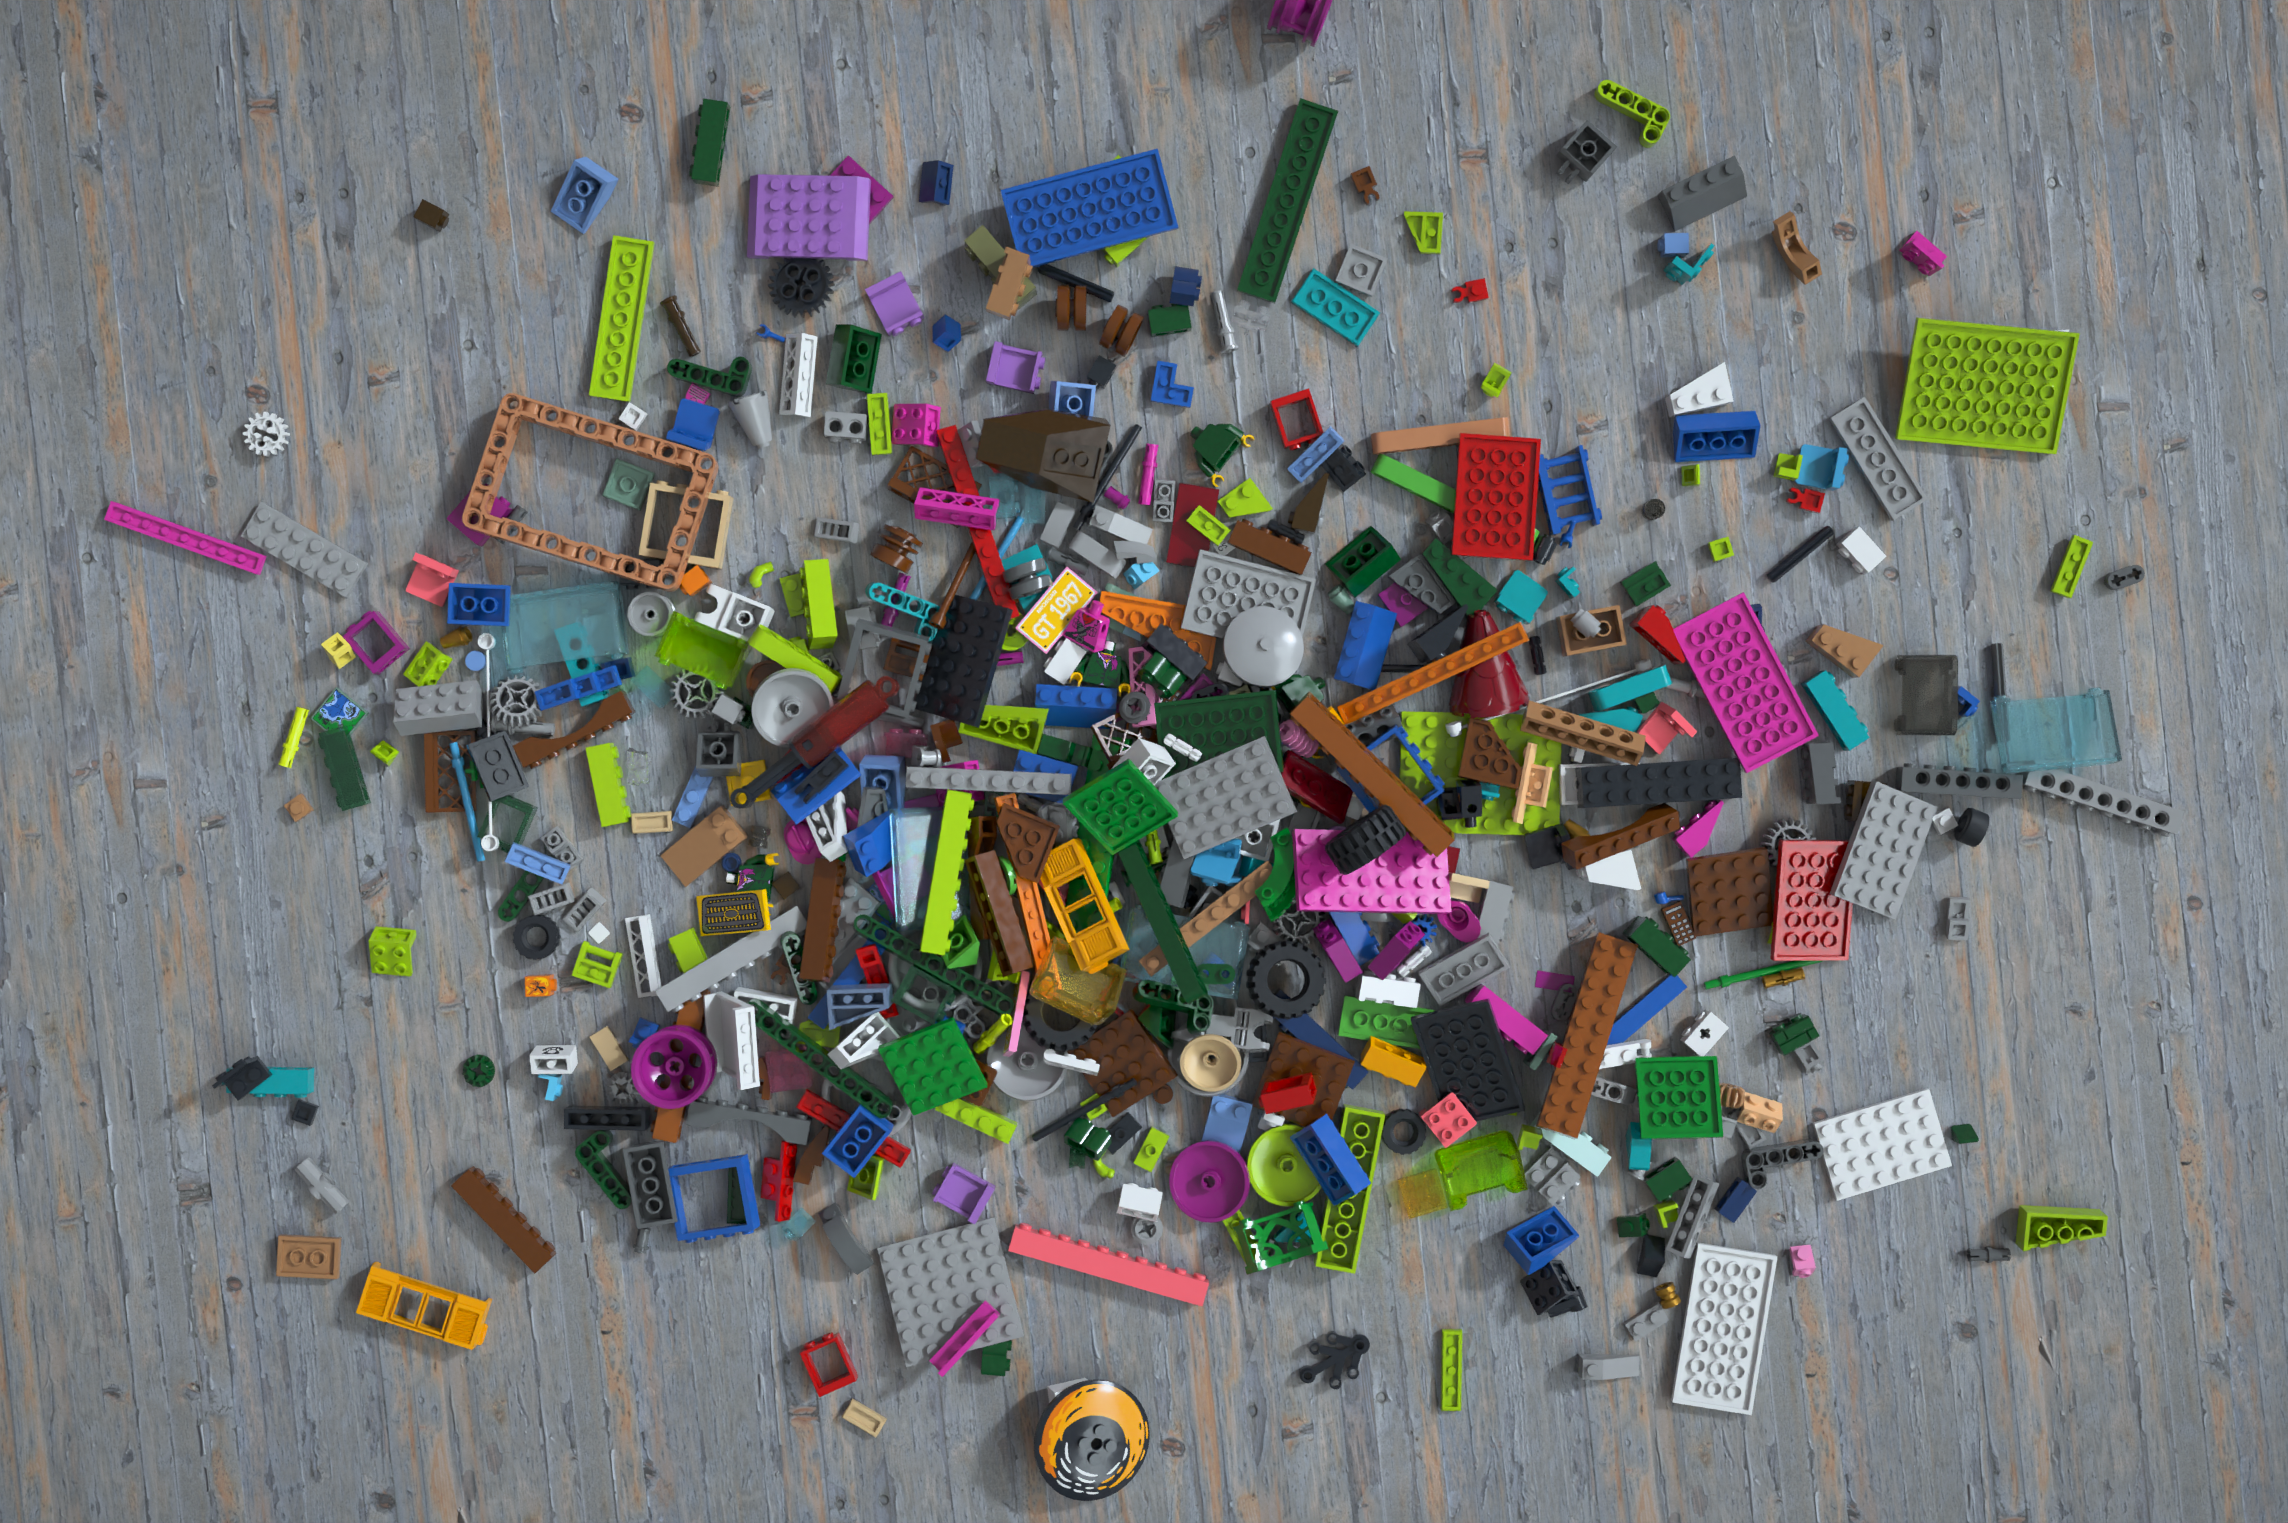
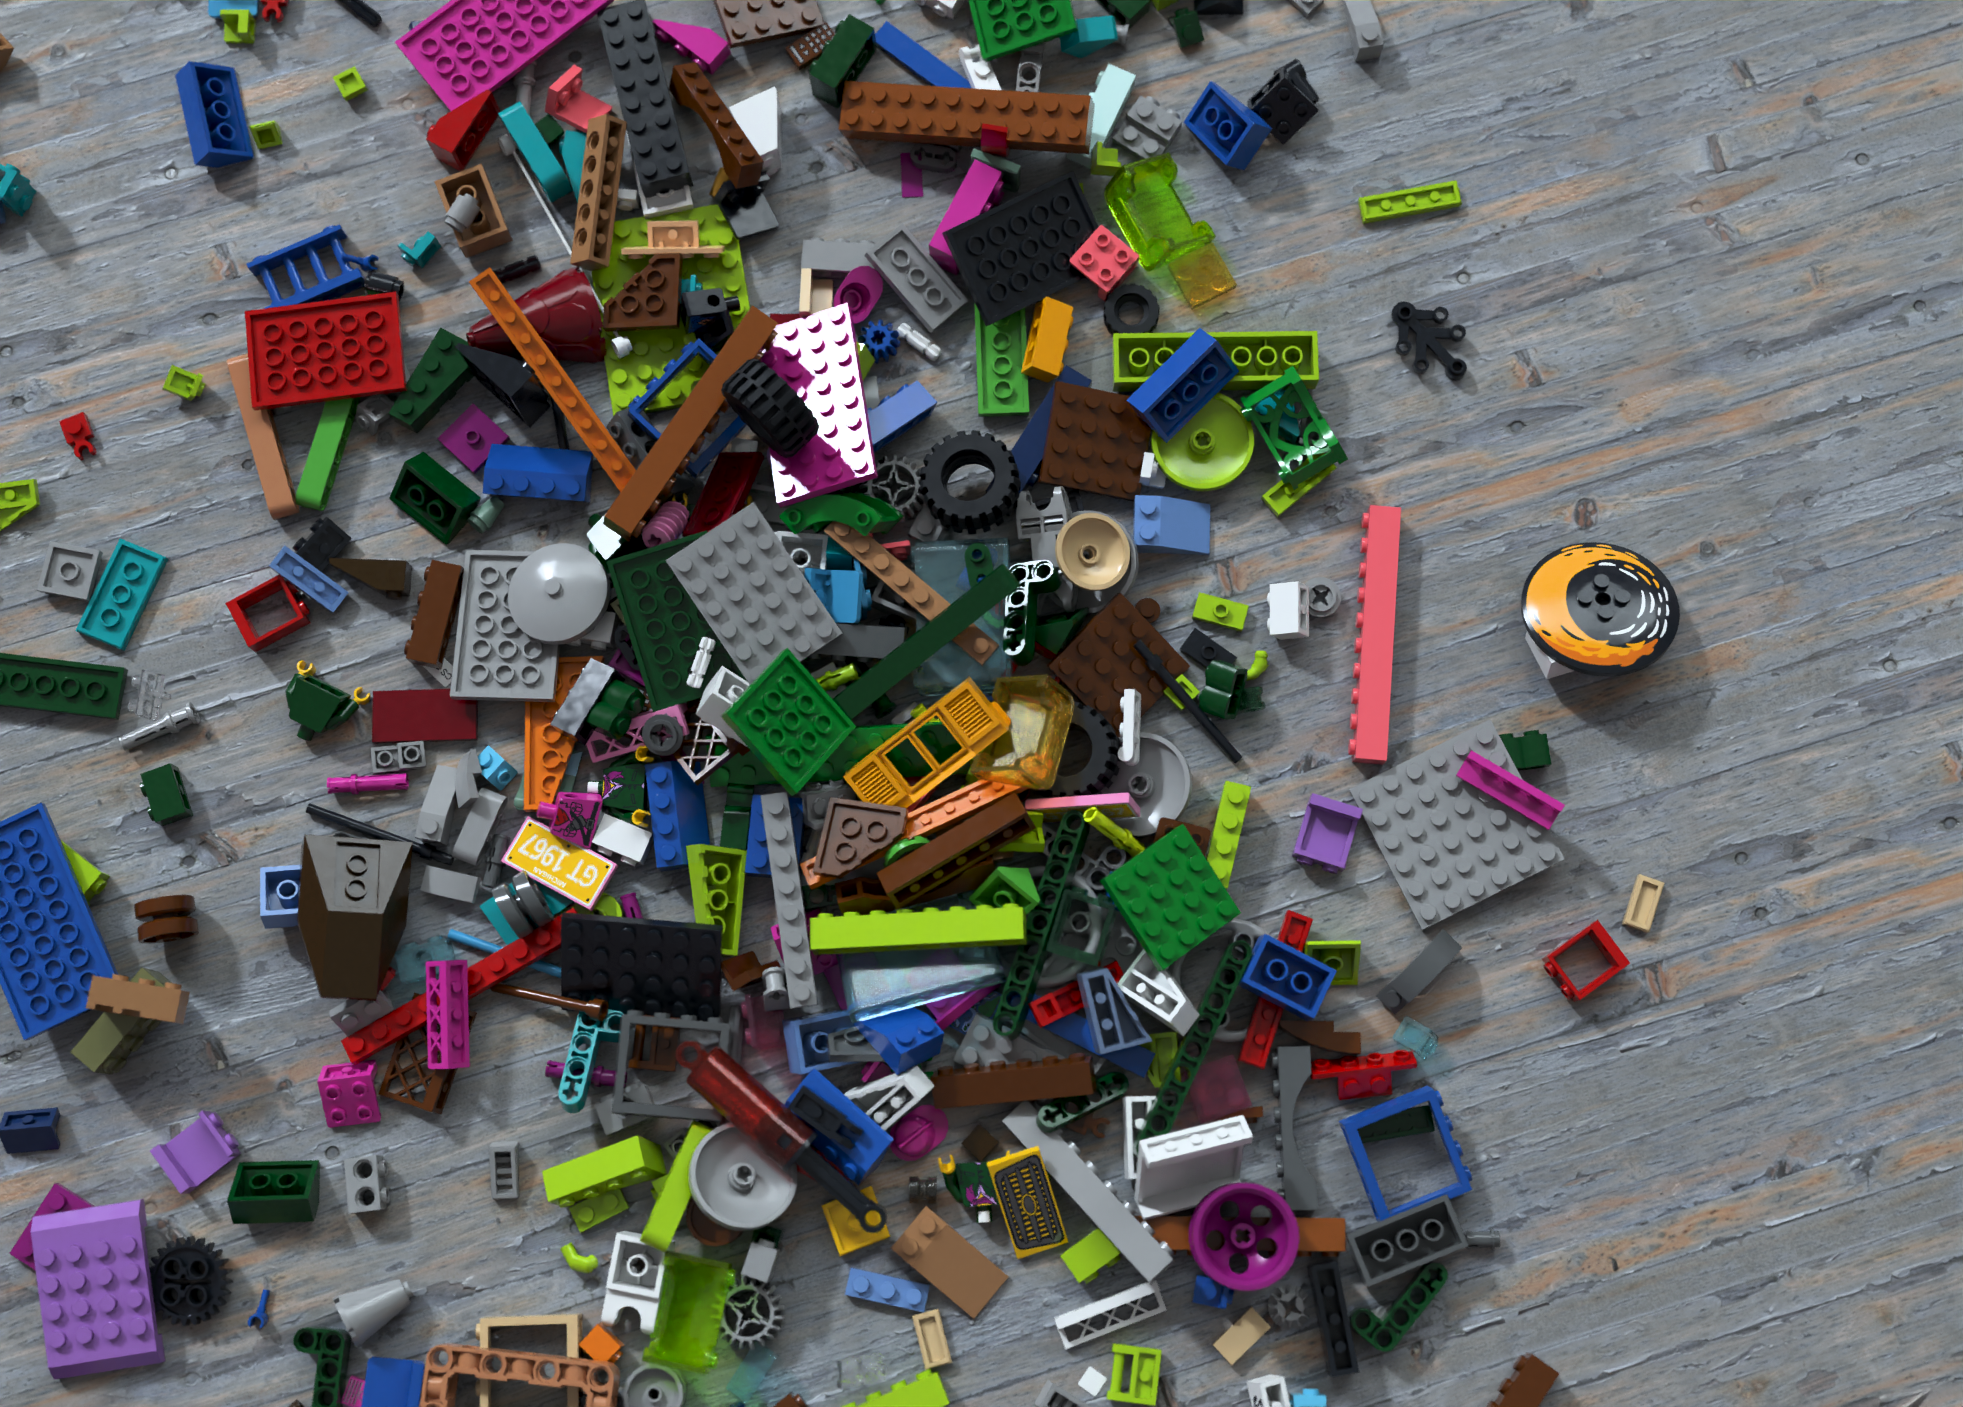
camera: 100 degrees left, 10 degrees down
(710, 744) = (809, 1274): dark grey hinge -> none
(731, 862) = (964, 1221): dark blue plate -> none
(801, 374) = (305, 1257): white fence -> none
(879, 424) = (356, 1140): lime plate -> none
(896, 548) = (508, 1081): reddish brown wheel -> none
(946, 333) = (224, 1076): blue panel -> none
(1015, 368) = (257, 978): medium lavender panel -> none
(1034, 506) = (430, 918): clear light blue plate -> none
(1072, 280) = (130, 939): black axle -> none
(1101, 372) = (244, 866): black brick -> none
(1117, 498) = (404, 816): magenta pin -> none
(1118, 329) = (186, 850): reddish brown wheel -> none
(1166, 391) = (257, 782): blue plate -> none
(1184, 286) = (118, 782): dark blue brick -> none
(1208, 525) = (419, 693): lime plate -> none
(1209, 1181) = (1243, 530): magenta dish -> none
(1244, 500) = (382, 657): lime wing -> none
(1285, 531) = (412, 598): black axle -> none
(1288, 1093) = (1111, 450): red window -> none
(1337, 950) = (922, 429): magenta window -> none
(1389, 990) = (959, 365): white wedge -> none
(1396, 950) = (907, 358): magenta window -> none
(1423, 584) = (450, 418): dark grey wing -> none
(1520, 597) = (447, 302): teal bracket -> none
(1645, 583) = (407, 161): dark green plate -> none
(1656, 506) = (313, 163): clear smoke wheel -> none
(1661, 898) = (785, 70): blue hand -> none
(1701, 394) = (164, 139): white wedge -> none

